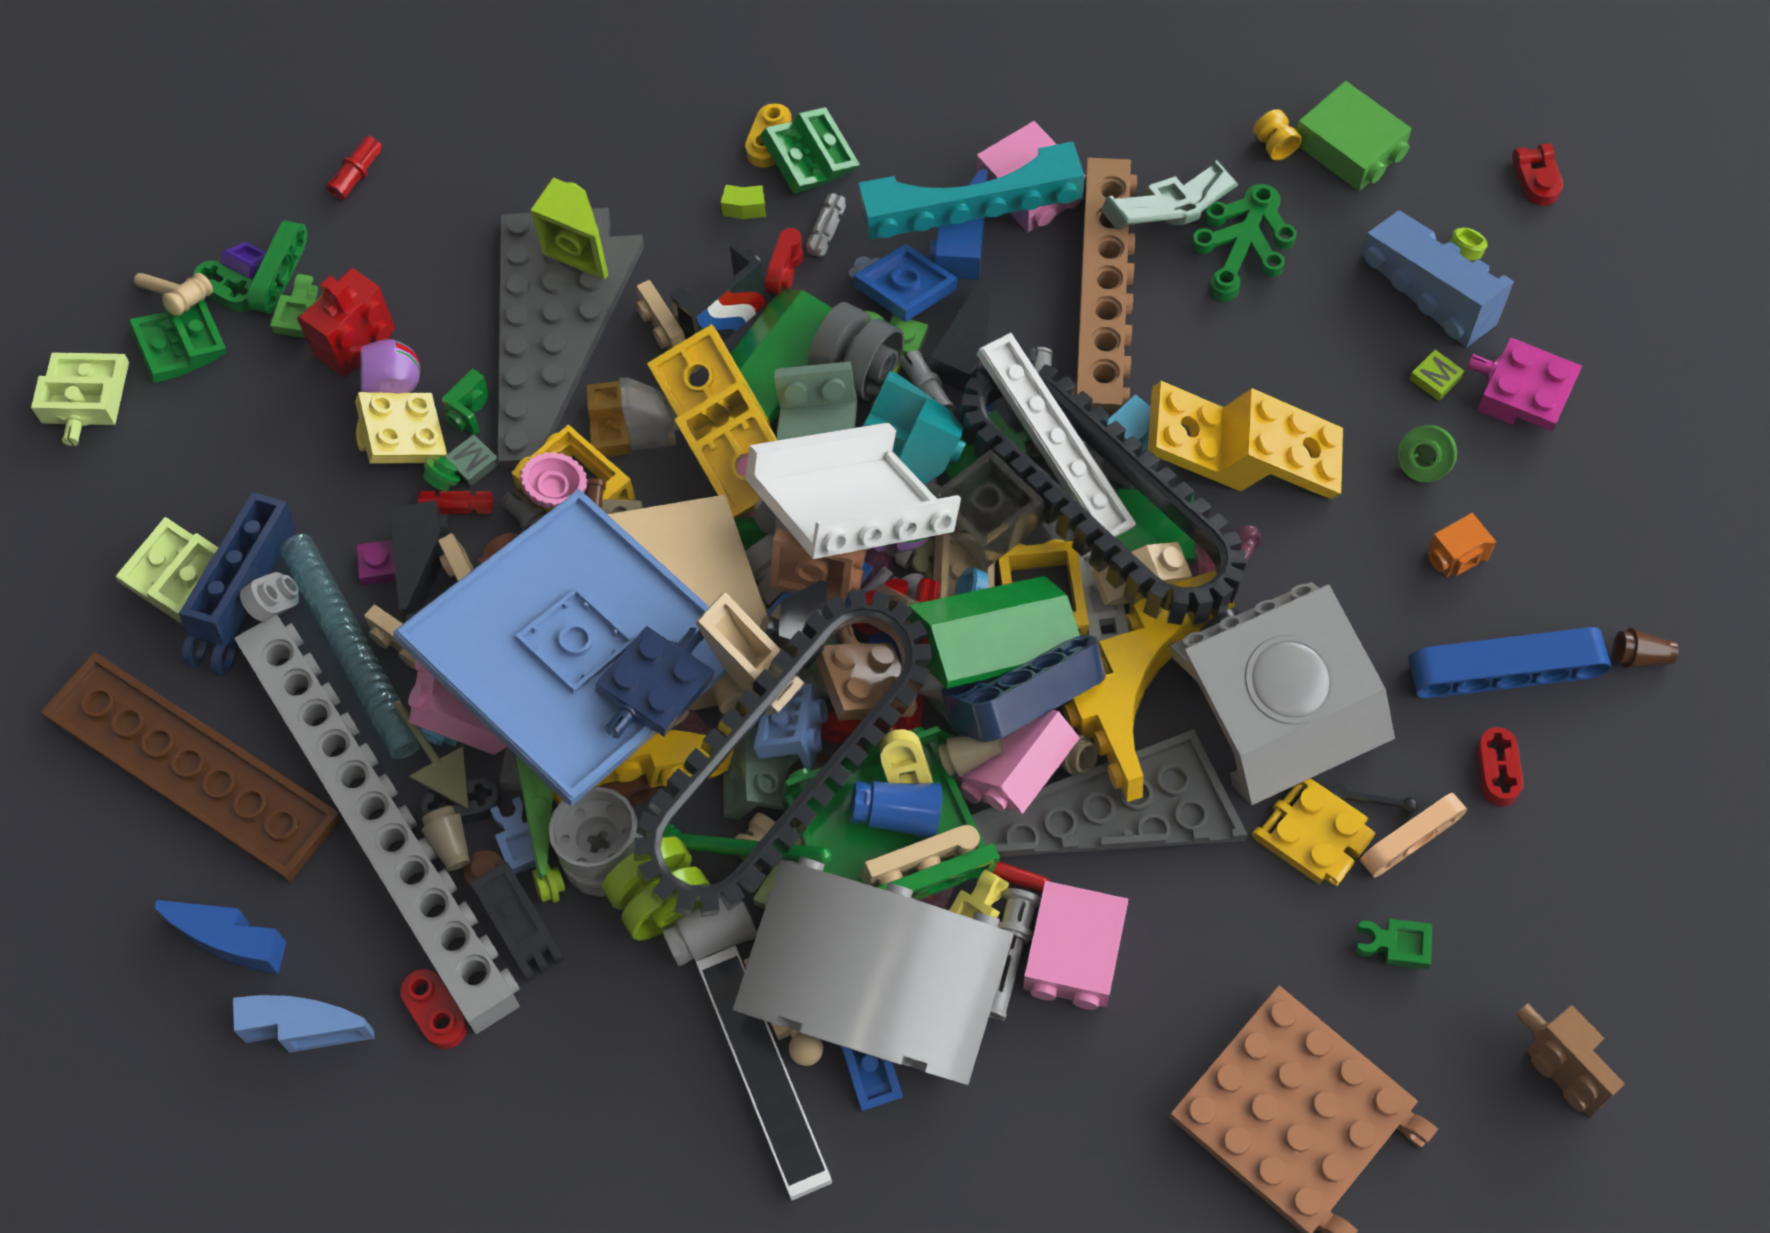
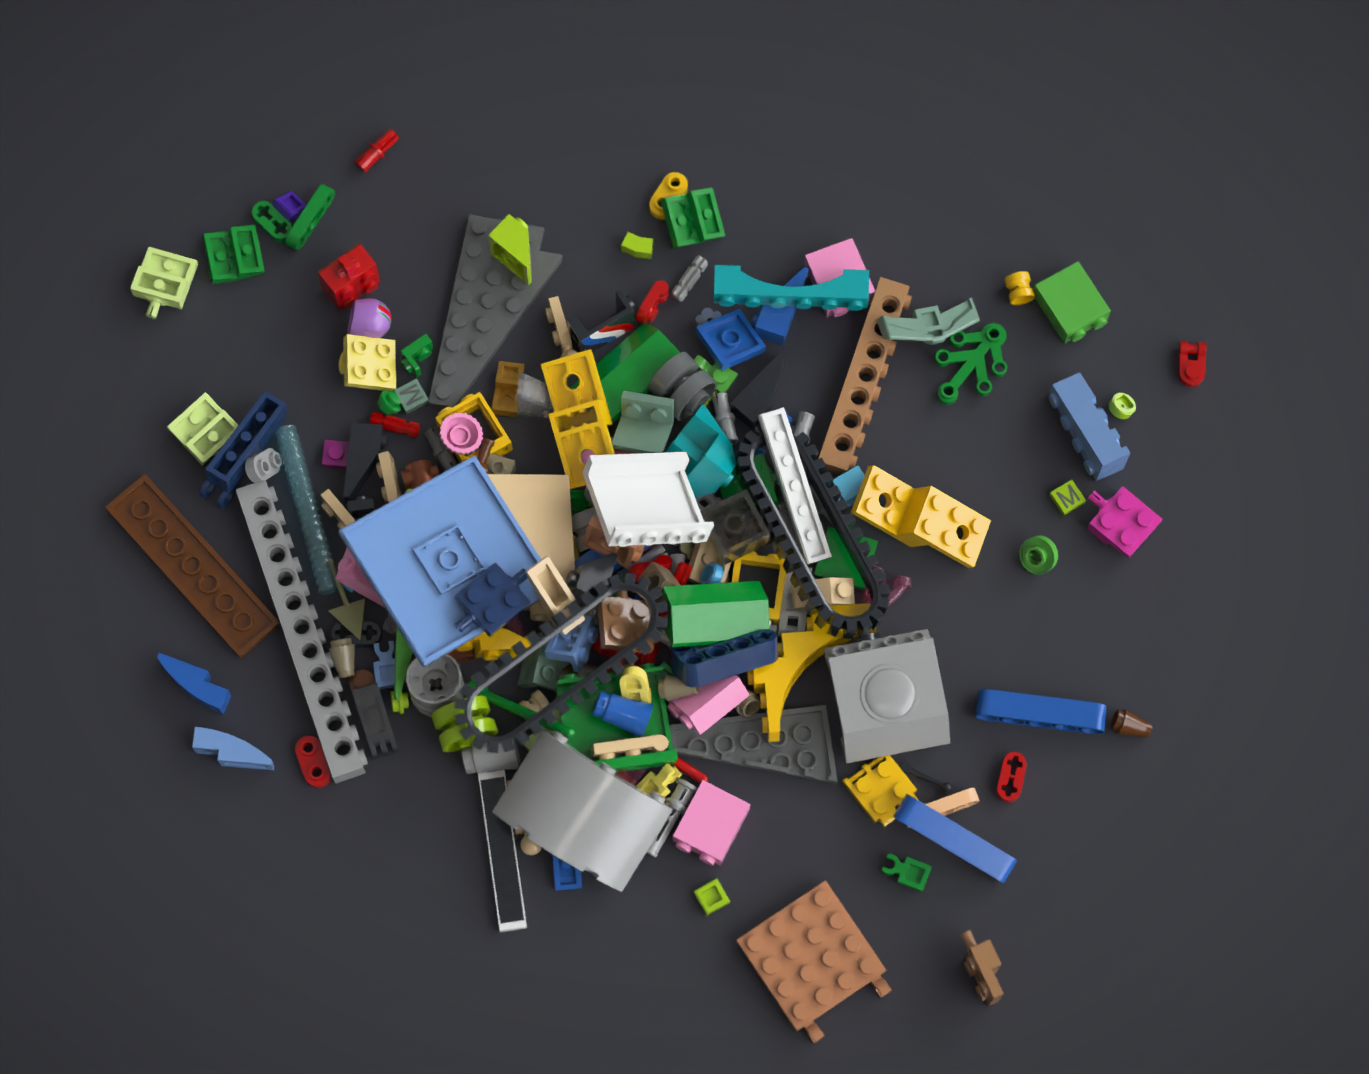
camera: 10 degrees right, 10 degrees up
(175, 296) = (242, 226): tan piece -> none
(290, 307) = (317, 255): bright green plate -> none
(1108, 1058) = (711, 897): none -> lime tile
(1454, 870) = (955, 838): none -> beam
(1460, 546) = (1037, 625): orange window -> none

